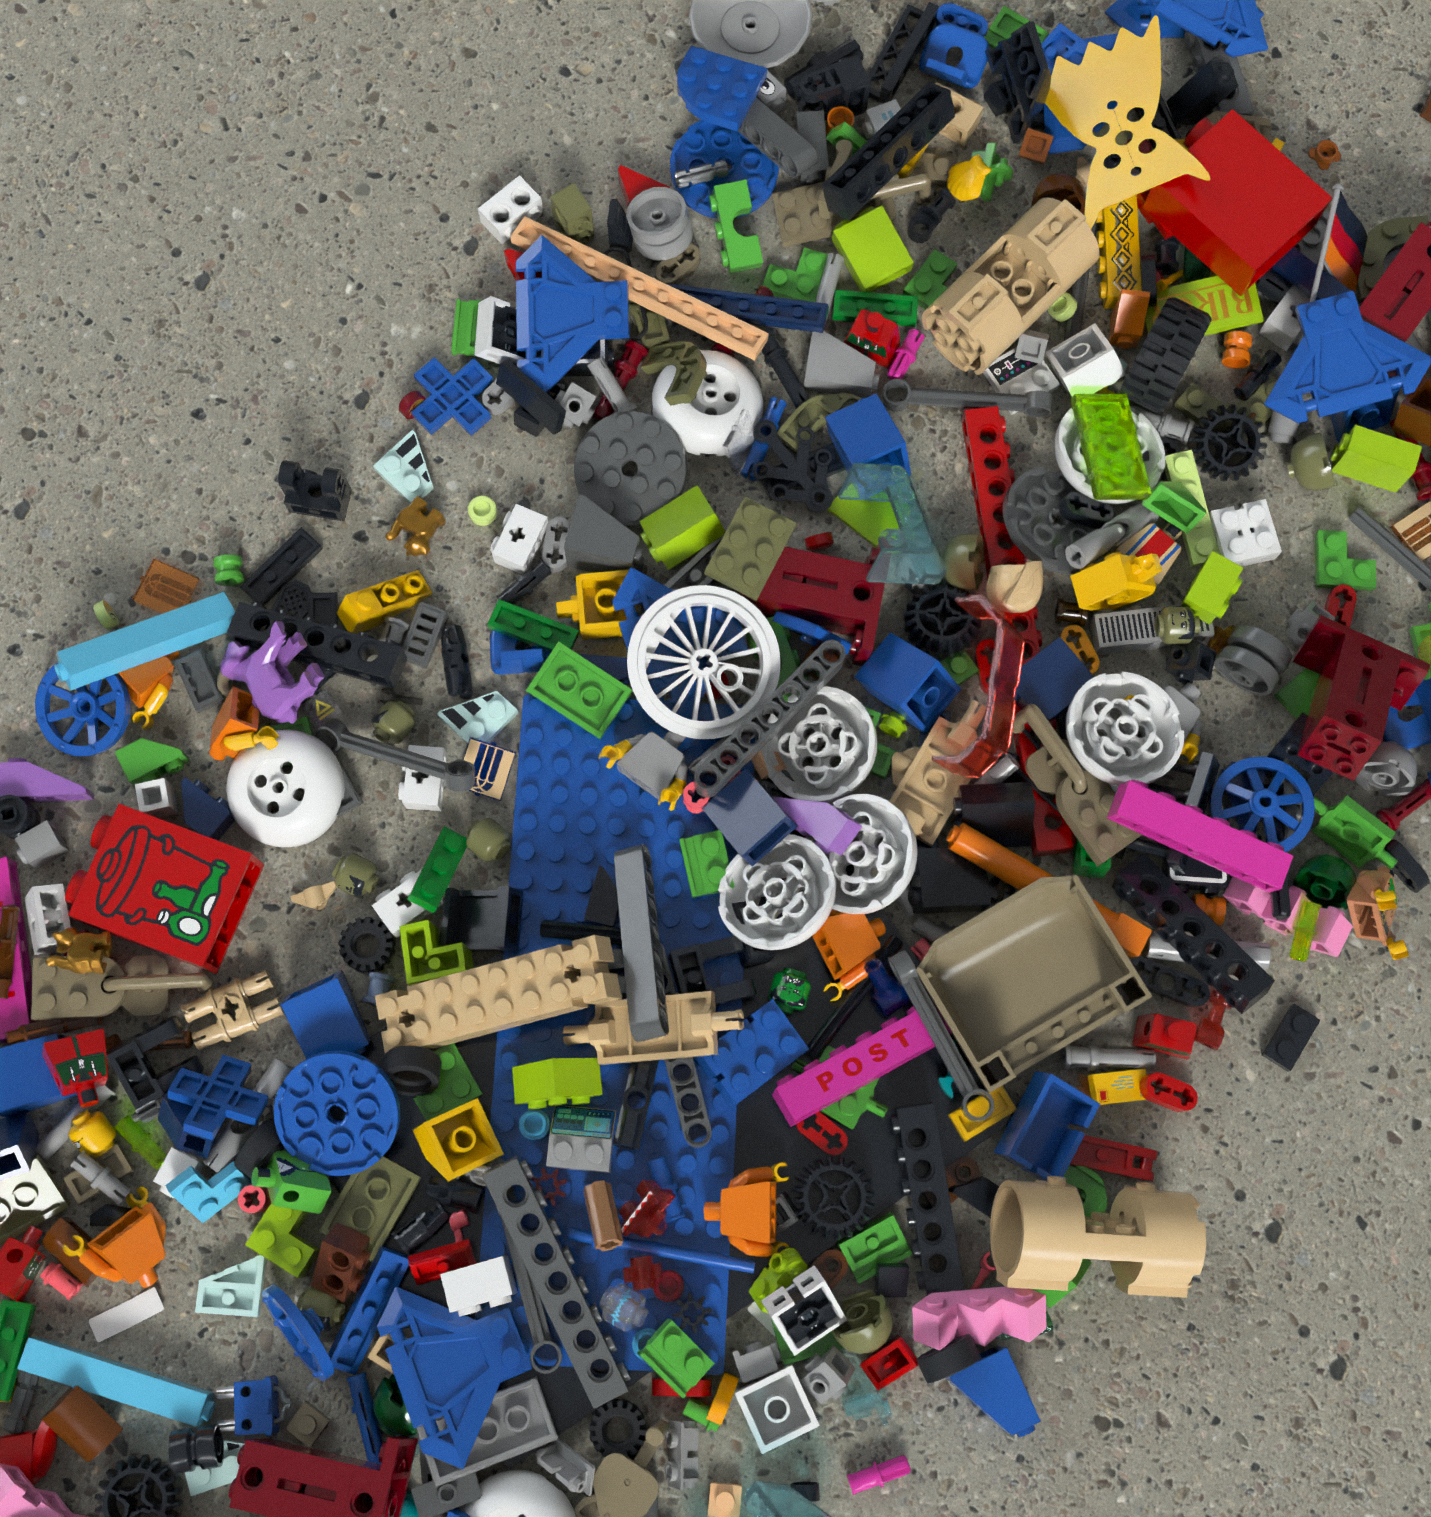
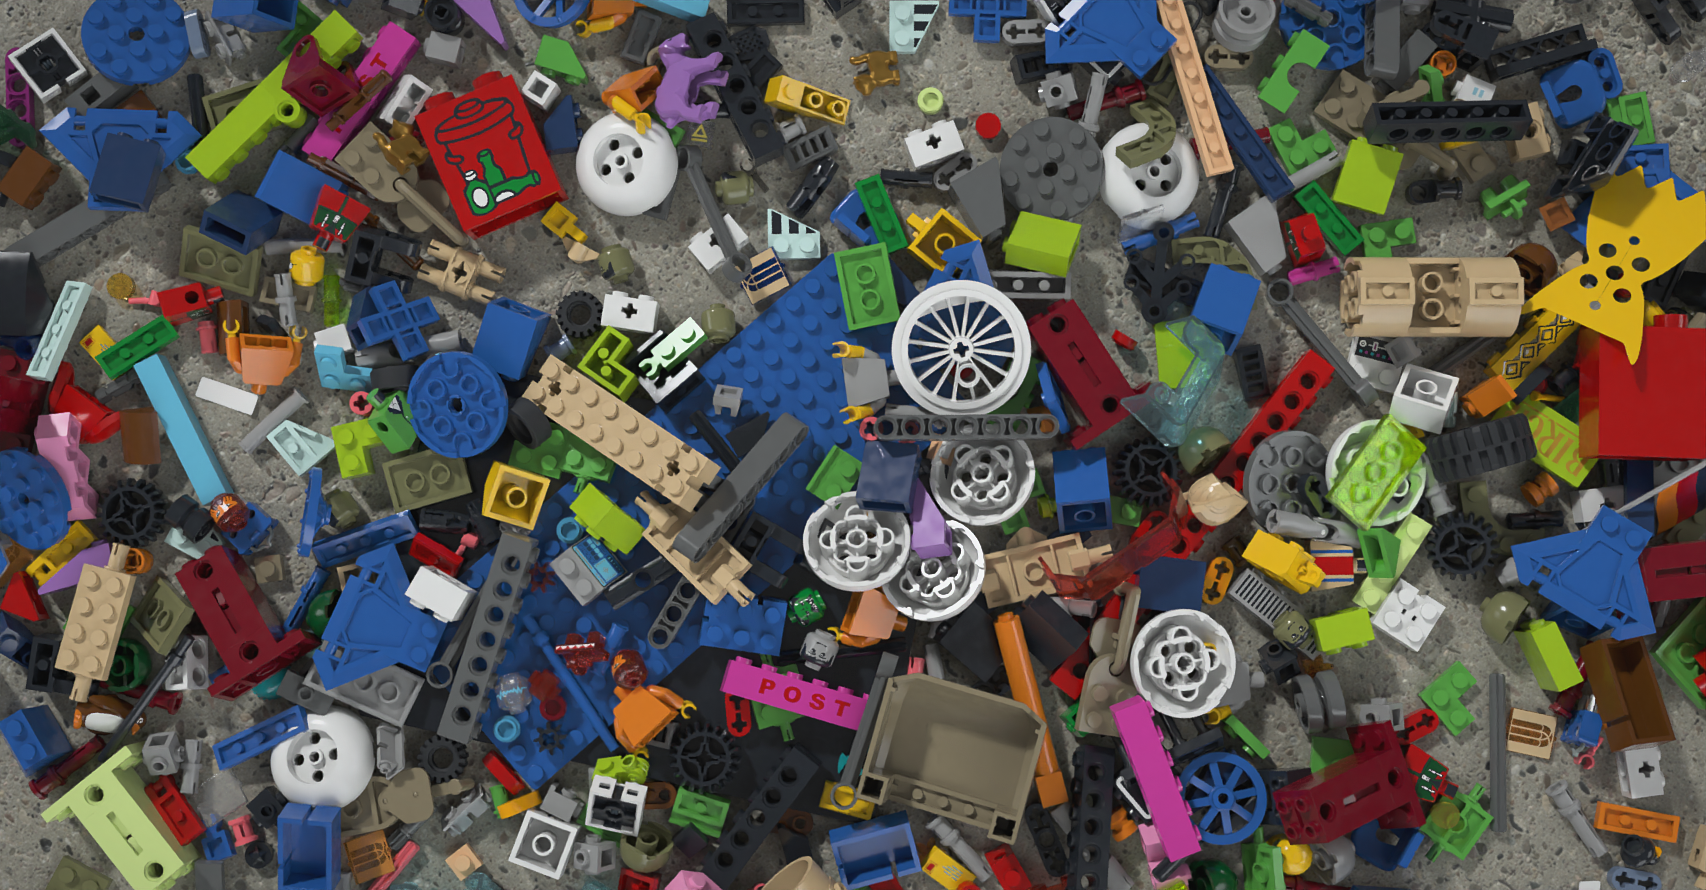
camera: 50 degrees right, 10 degrees up
(188, 1294) = (273, 420): none -> light grey pin
(225, 1407) = (229, 512): none -> clear red head
(276, 886) = (562, 222): none -> yellow plate
(341, 1262) = (376, 496): copper brick -> none
(438, 870) = (668, 312): green plate -> none
(472, 893) = (674, 348): none -> plate
(492, 1055) = (585, 463): none -> bright green plate
(530, 396) = (1035, 56): black tile -> none
(547, 486) = (987, 126): none -> red piece
(555, 886) = (727, 397): none -> light grey tile
(603, 1215) = (554, 627): medium nougat axle -> none
(675, 1358) = (513, 754): bright green plate -> none
(699, 1186) = (628, 669): none -> clear red head
(750, 548) = (1066, 305): olive plate -> none
(835, 1011) = (819, 649): none -> light grey head
(888, 992) = (865, 667): clear blue pin -> none
(944, 464) = (1261, 371): none -> black slope
(967, 178) = (1484, 191): yellow animal -> none
(1063, 308) = (1454, 345): yellowish green tile -> none
(1238, 745) = (1252, 745): none -> bright green plate
(1362, 790) = (1296, 857): none -> yellow helmet
(1392, 630) = (1428, 775): none -> torso

